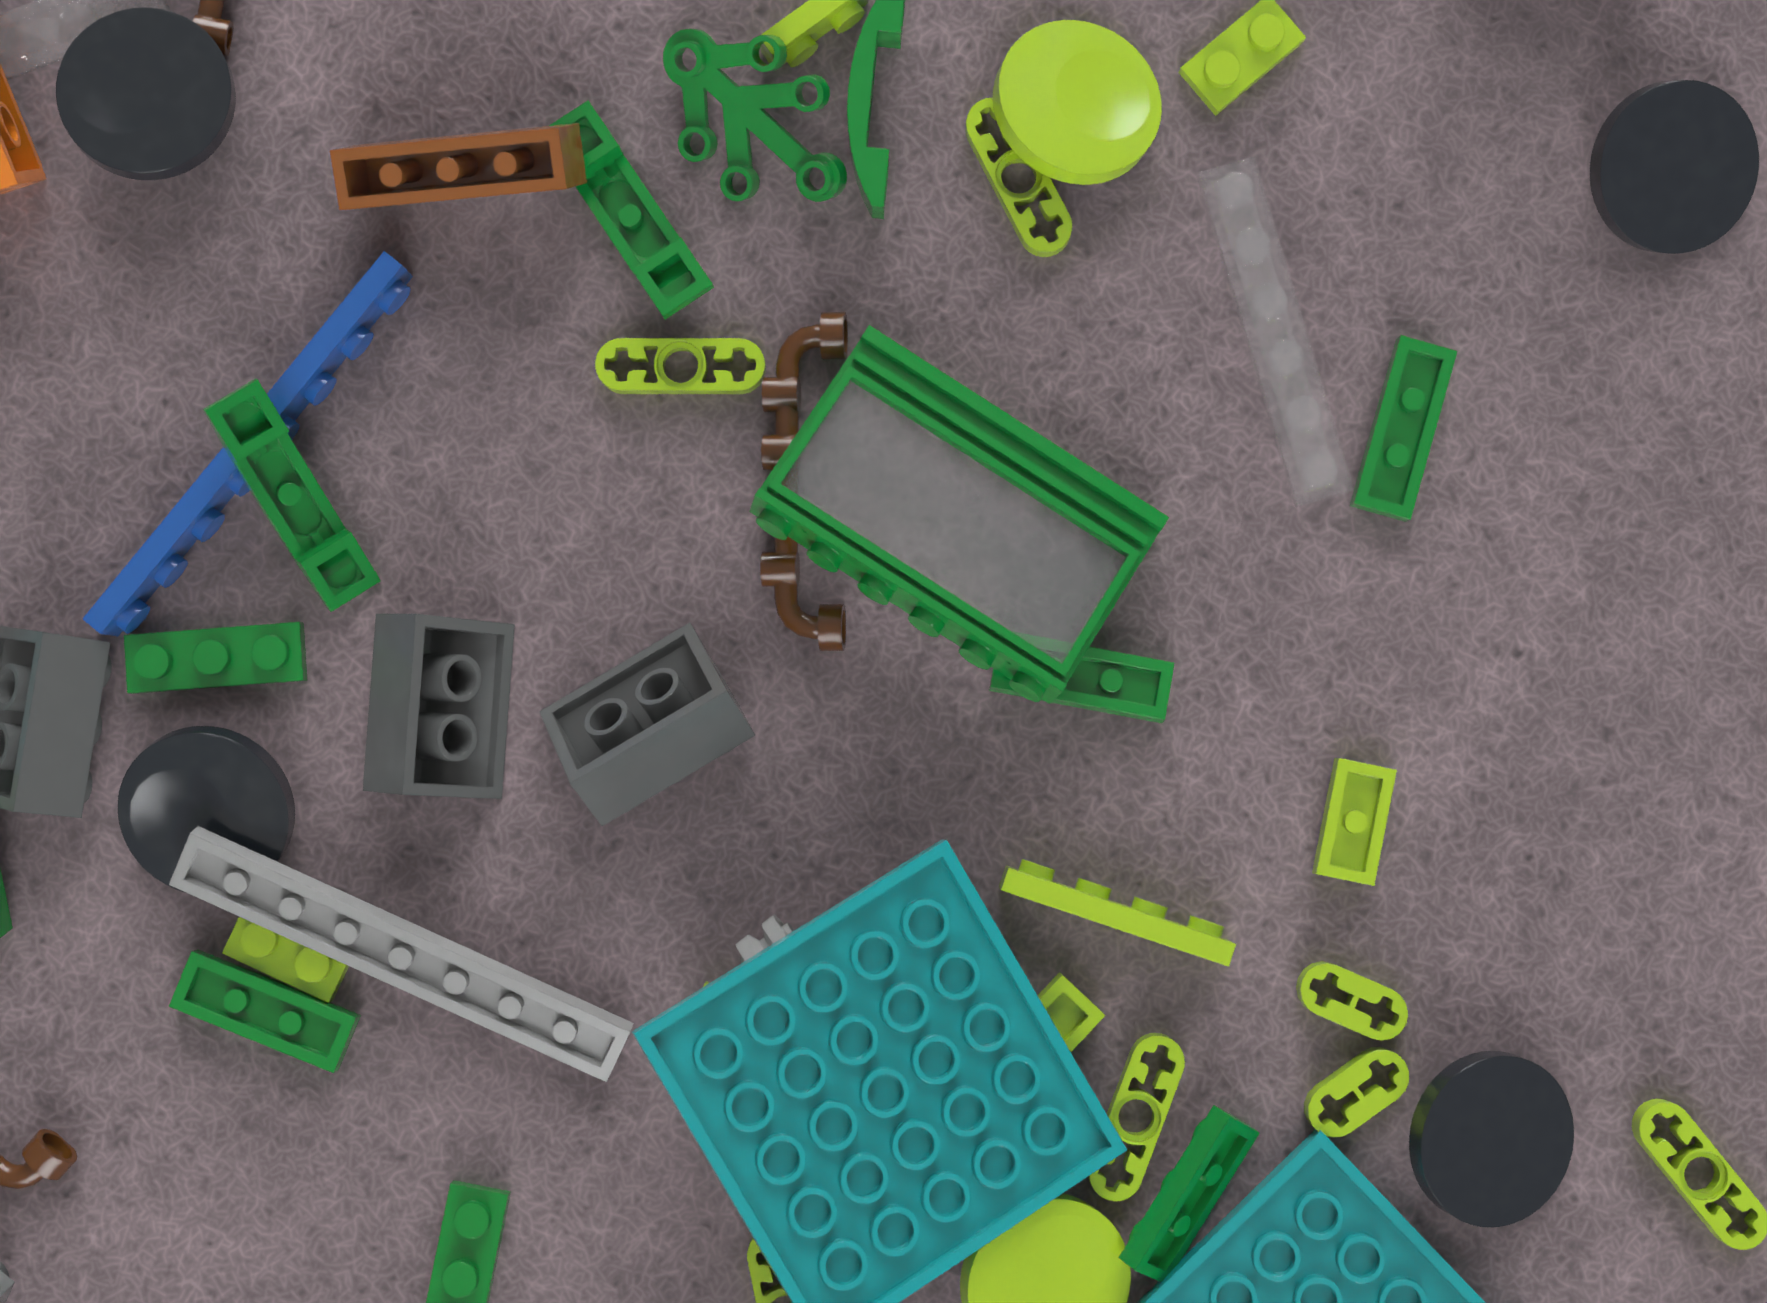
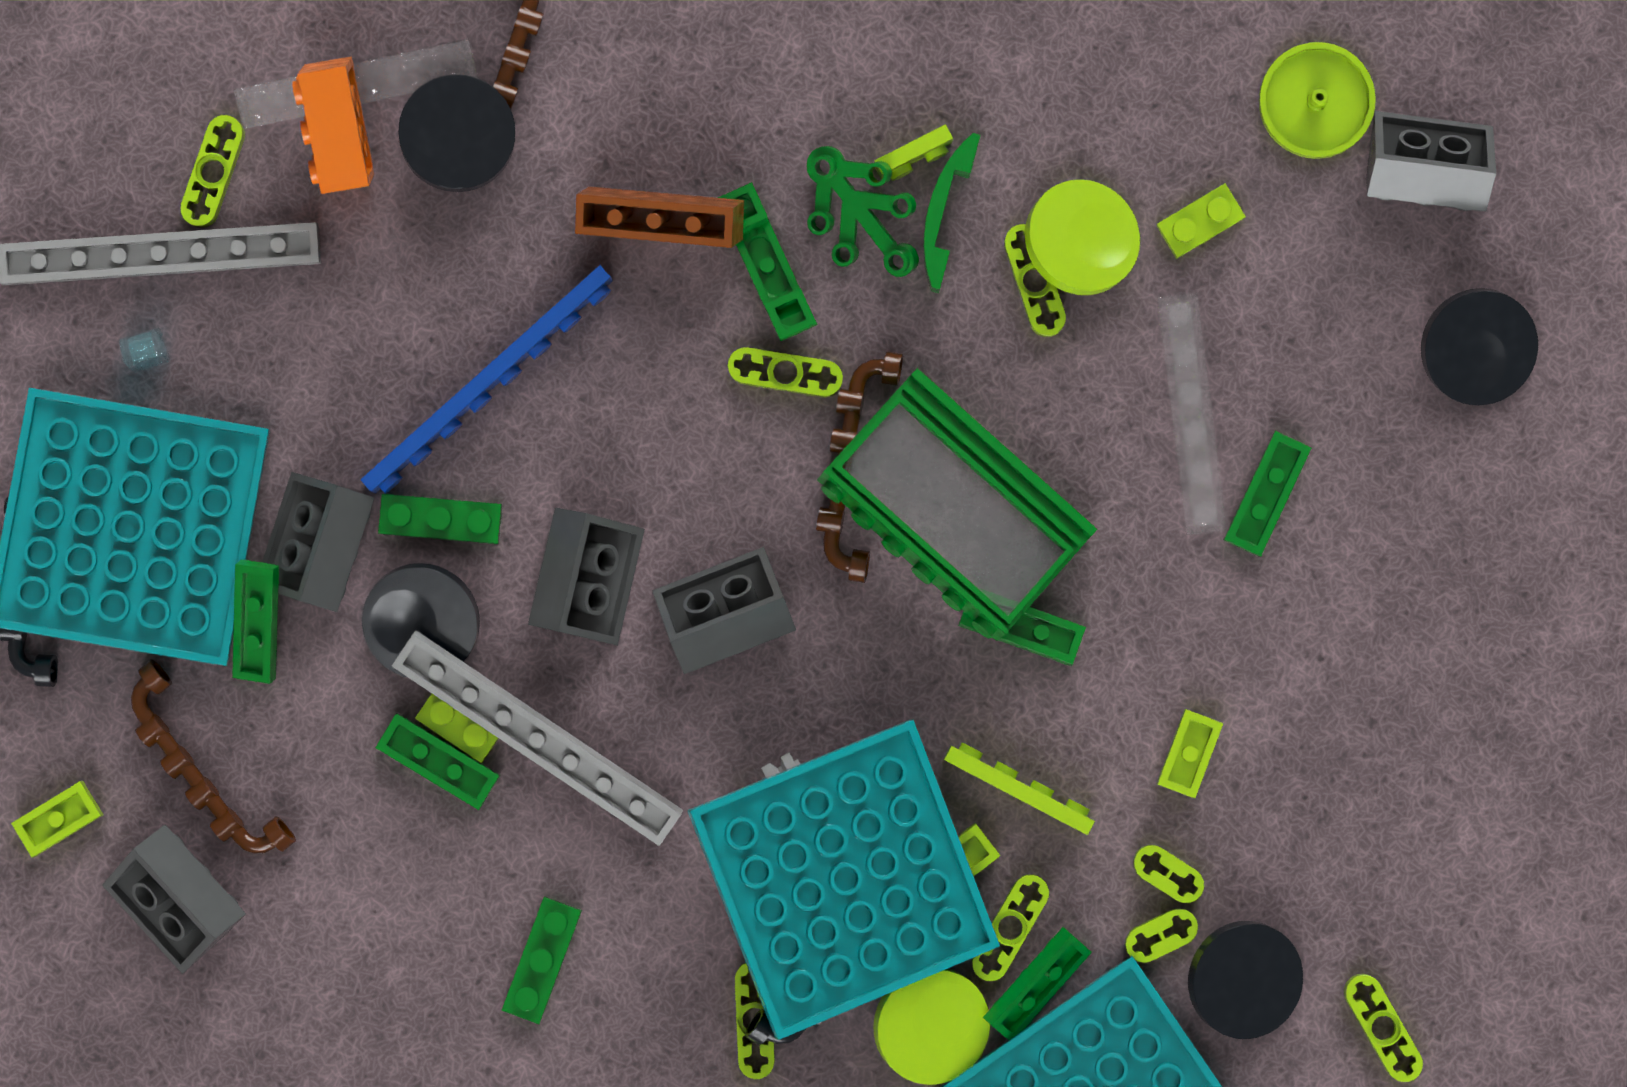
camera: 15 degrees right, 0 degrees up
(290, 495) = (511, 421): green slope -> none

